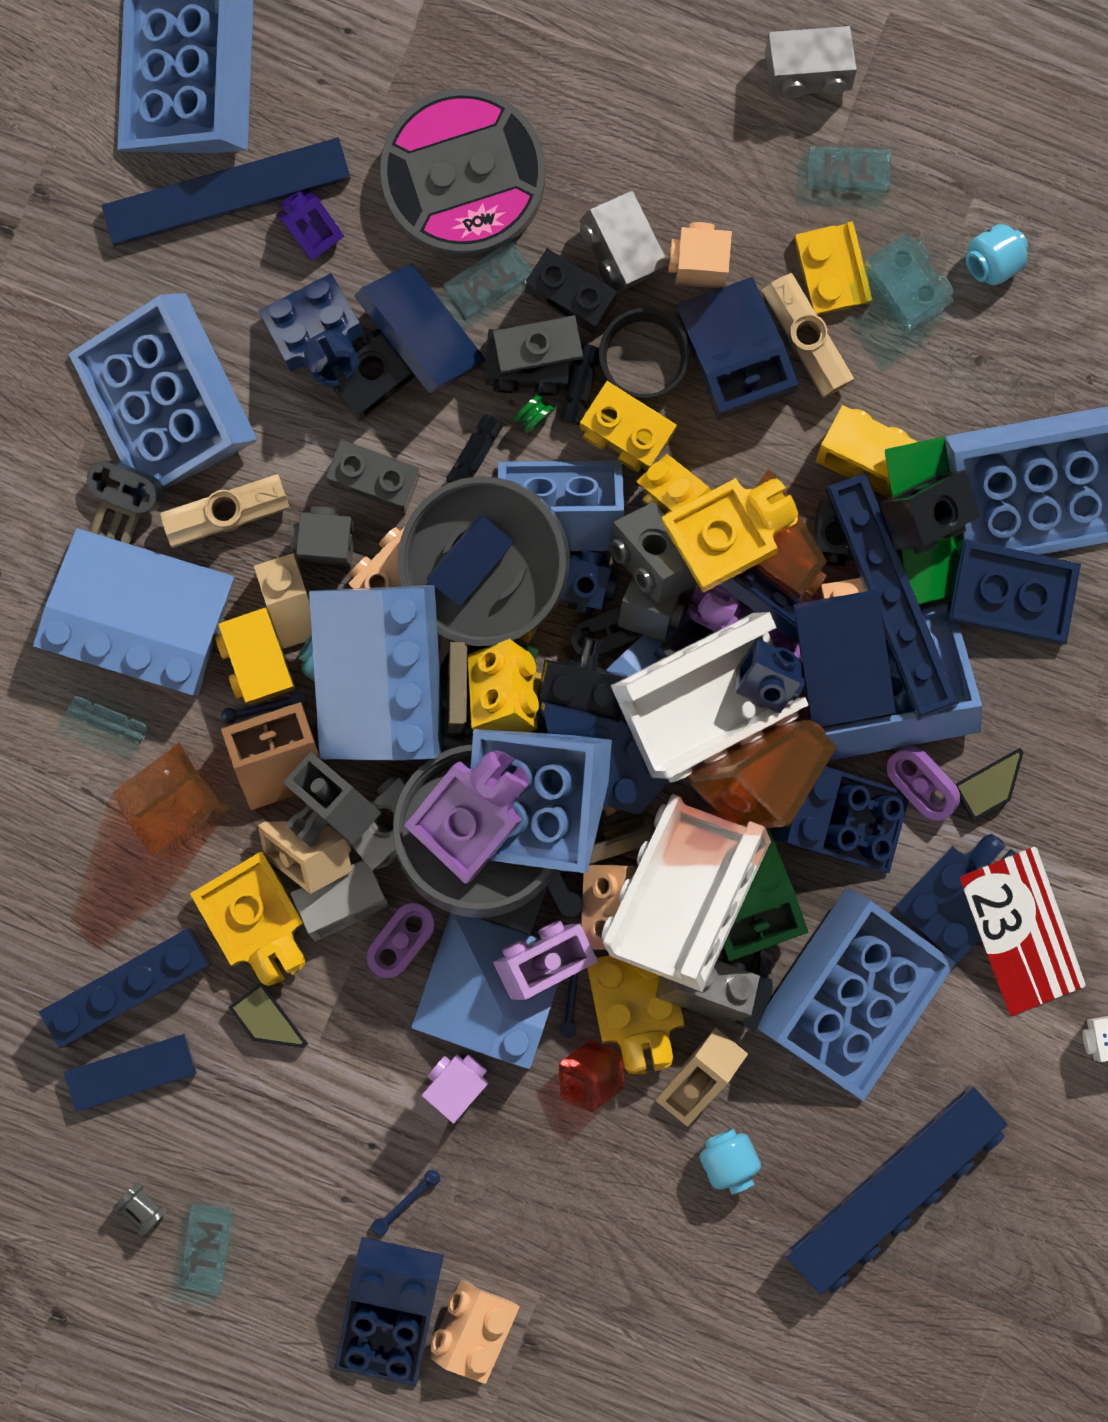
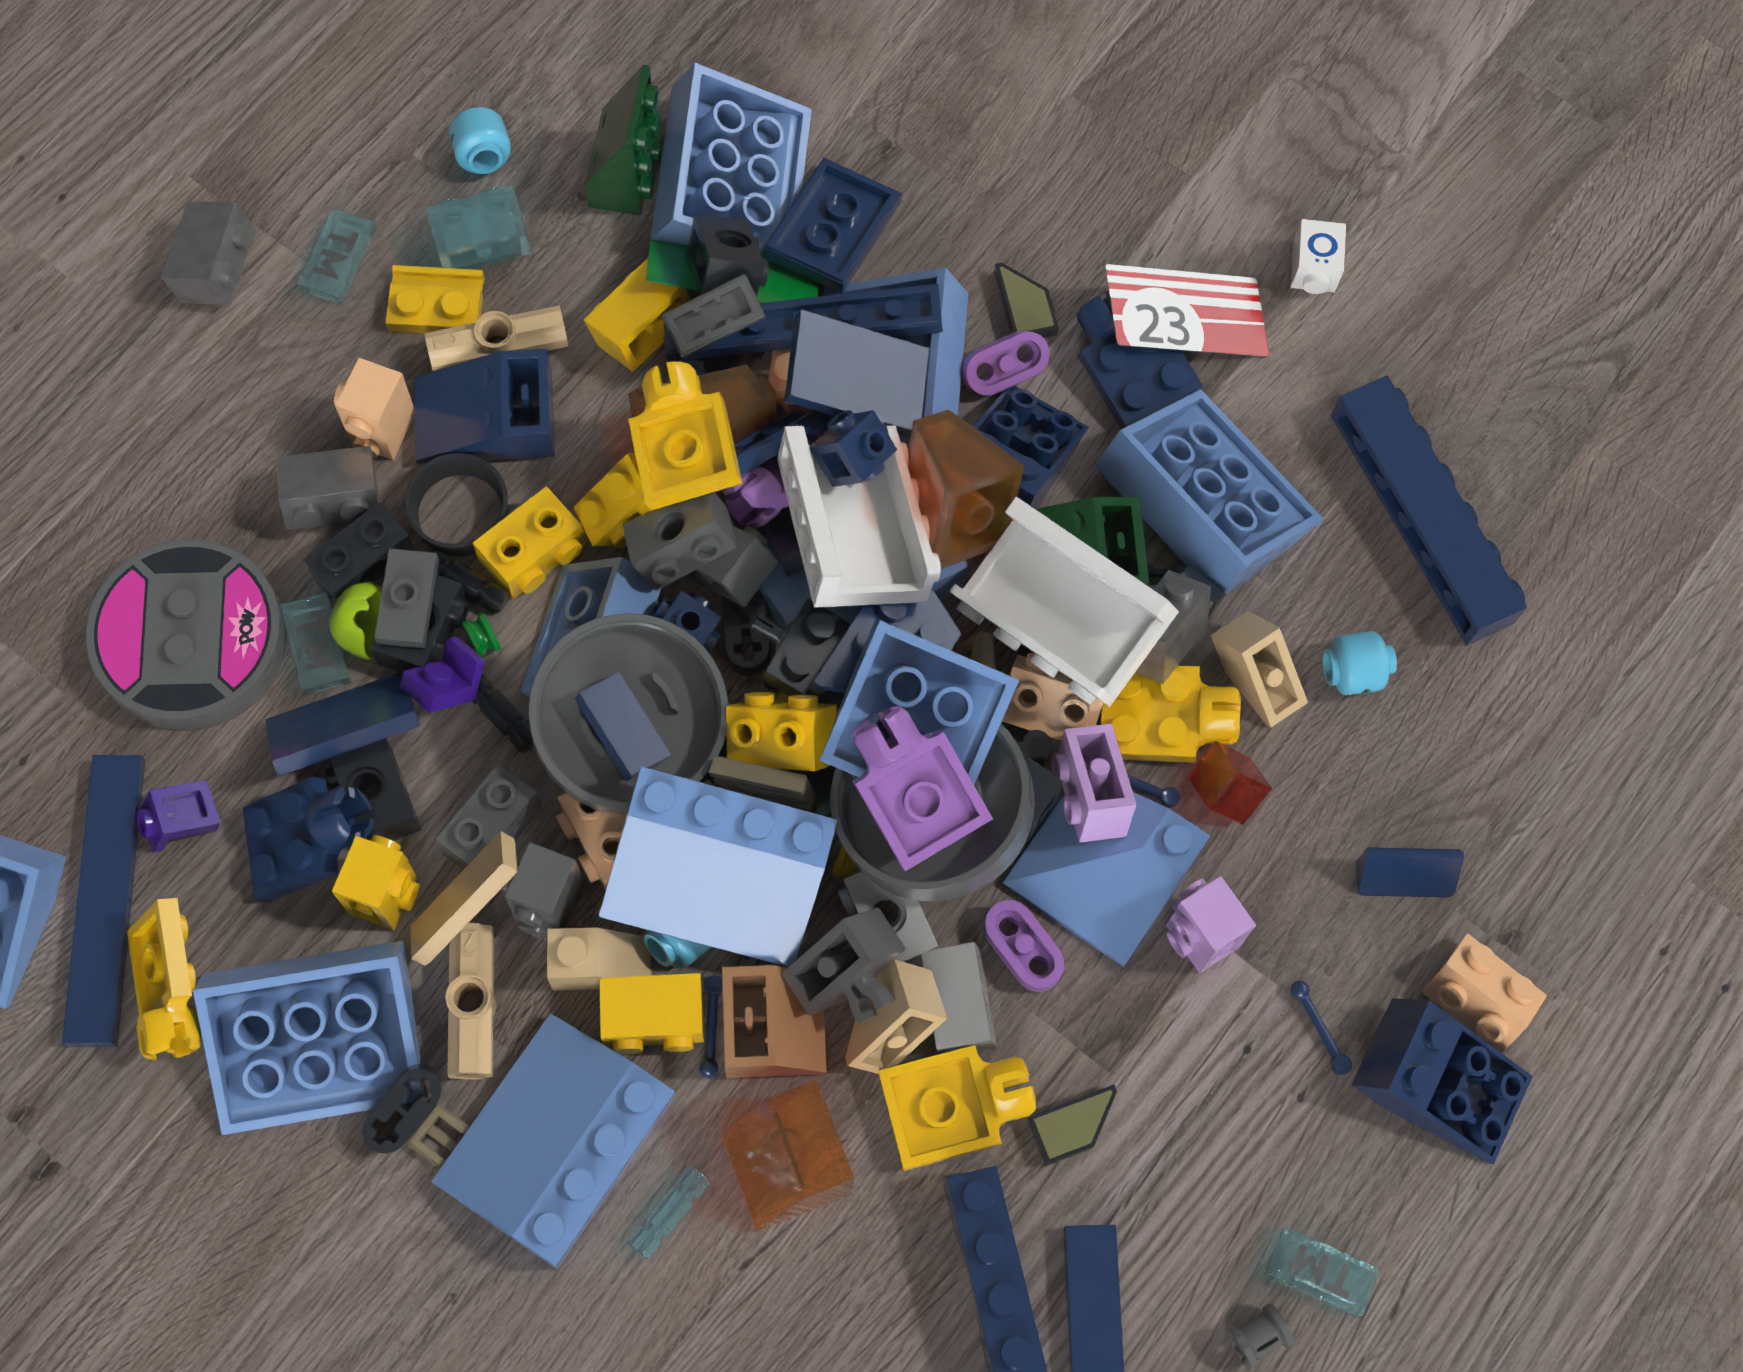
camera: 75 degrees left, 15 degrees down
(164, 267) = (163, 982): none -> yellow plate
(293, 405) = (376, 882): none -> yellow brick
(298, 478) = (463, 898): none -> tan tile
(479, 400) = (447, 681): none -> dark purple bracket
(513, 307) = (355, 618): none -> lime hair
(556, 1245) = (1408, 872): none -> dark blue slope
(865, 518) = (713, 316): none -> dark grey plate
(1020, 386) = (626, 148): none -> dark green slope

